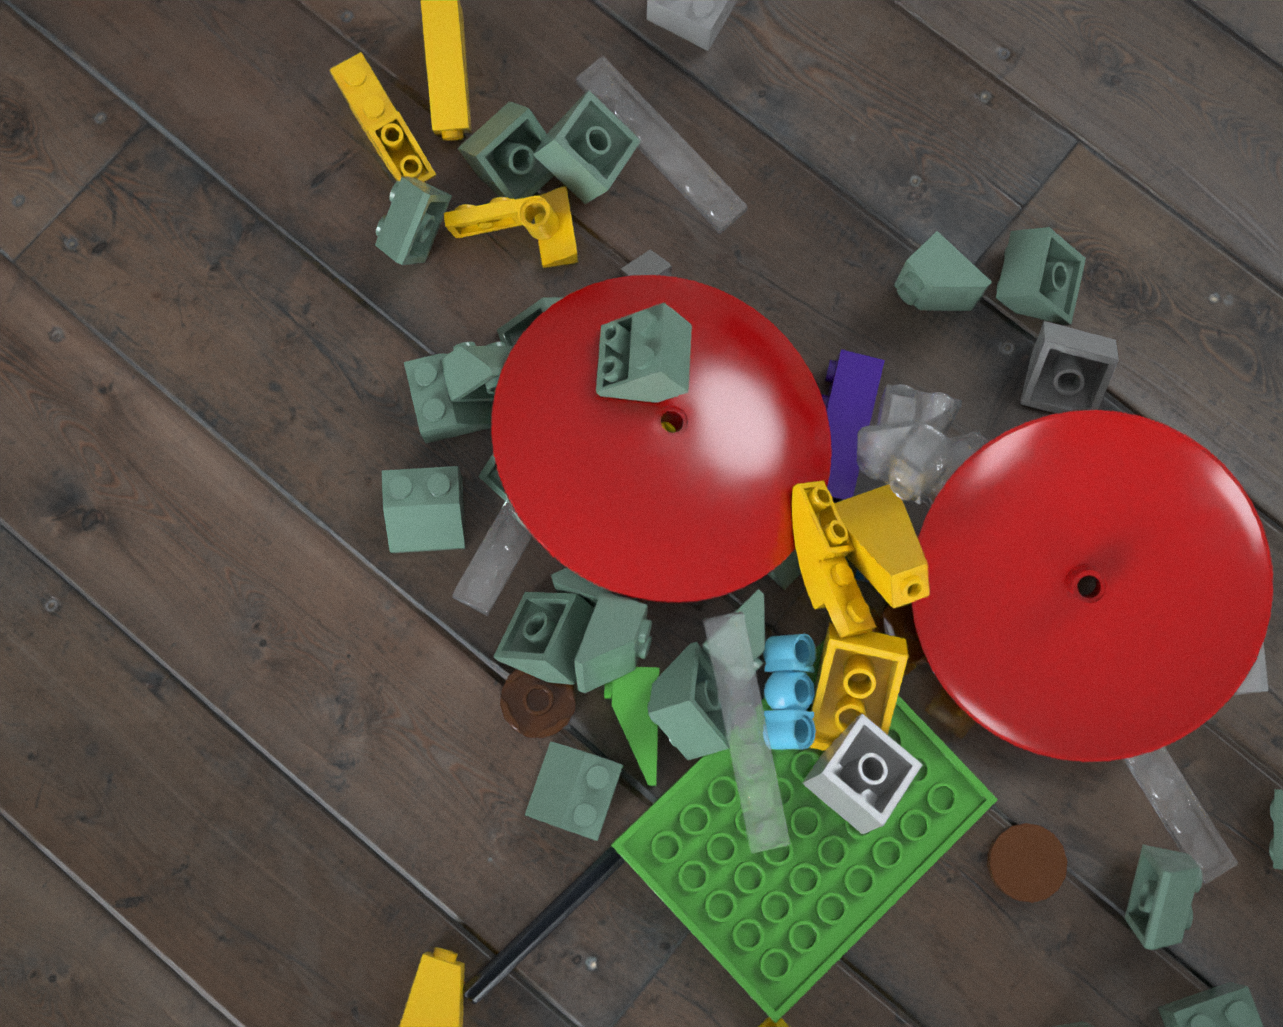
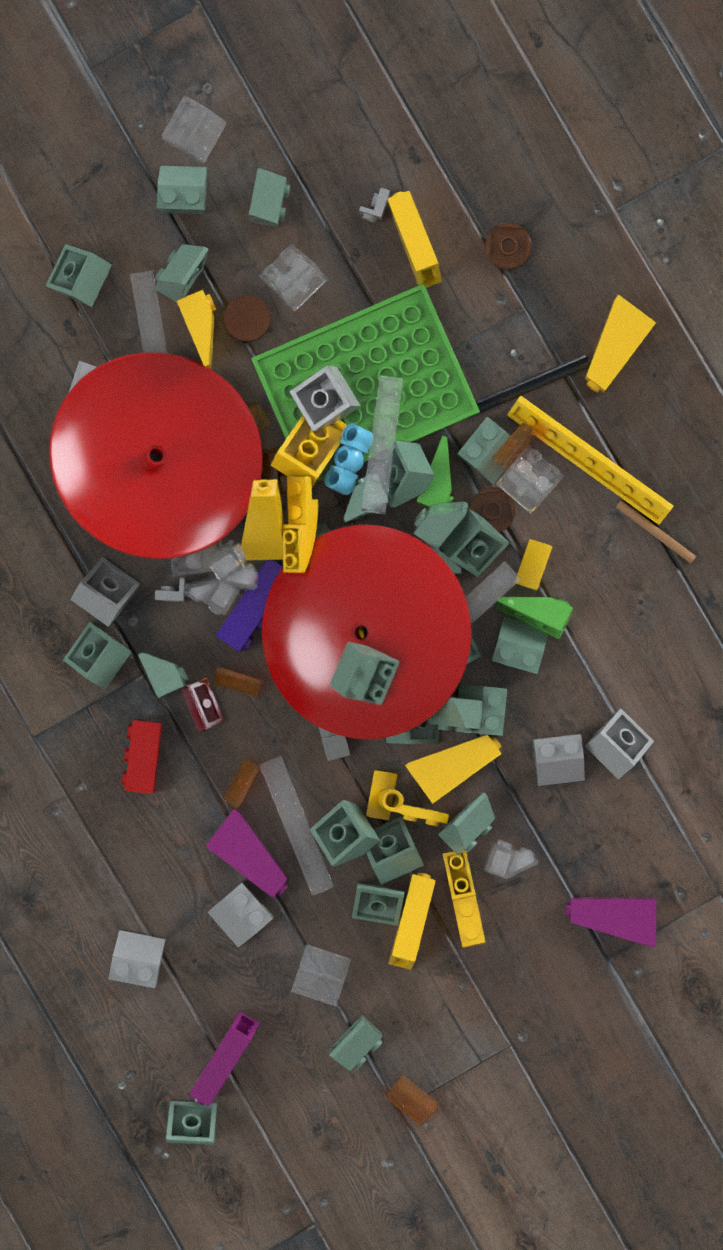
camera: 155 degrees left, 10 degrees up
(151, 175) = (617, 916): none -> magenta slope
(225, 418) = (619, 744): none -> light grey slope
(272, 759) = (655, 531): none -> medium nougat bar
(311, 368) = (559, 759): none -> light grey slope
(333, 191) = (506, 861): none -> clear slope
(403, 567) = (539, 612): none -> bright green slope
(411, 833) = (590, 460): none -> yellow plate
(445, 639) = (533, 564): none -> yellow slope
(466, 300) = (448, 768): none -> yellow slope
(494, 768) = (530, 479): none -> clear slope
(505, 80) = (378, 903): none -> sand green slope
(537, 810) = (514, 446): none -> clear orange slope
(715, 80) = (245, 852): none -> magenta slope
(761, 175) = (241, 783): none -> clear orange slope
(823, 315) = (237, 682): none -> clear orange slope
(859, 265) = (202, 705): none -> dark red slope
(918, 161) = (142, 756): none -> red brick
(975, 401) = (169, 594): none -> light grey bracket
(984, 954) = (293, 277): none -> clear slope
(1098, 821) = (199, 317): none -> yellow slope

